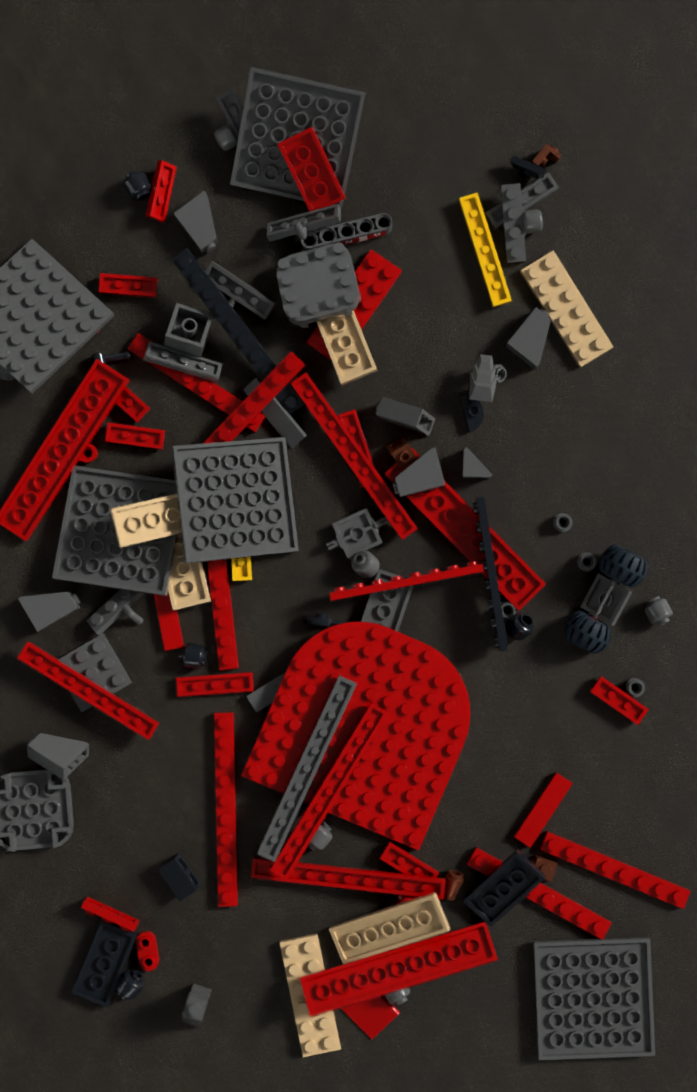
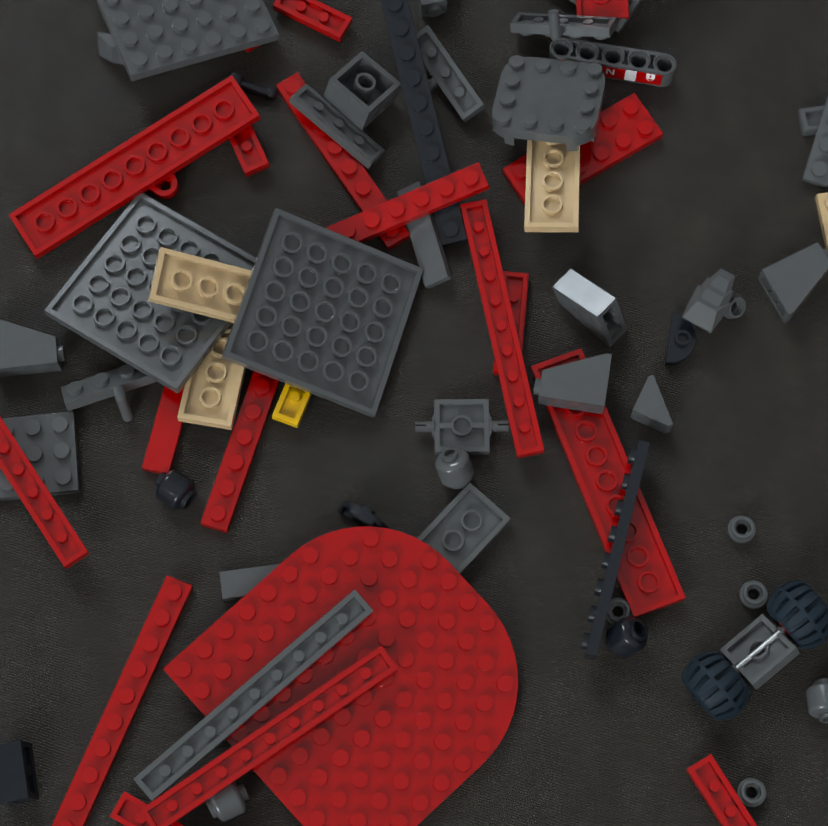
camera: 25 degrees right, 15 degrees down
(135, 436) = (234, 190): red plate -> none
(214, 684) = (185, 539): red tile -> none
(398, 582) = (511, 512): red plate -> none
(401, 451) = (565, 348): copper bracket -> none
(485, 250) = (780, 152): yellow plate -> none

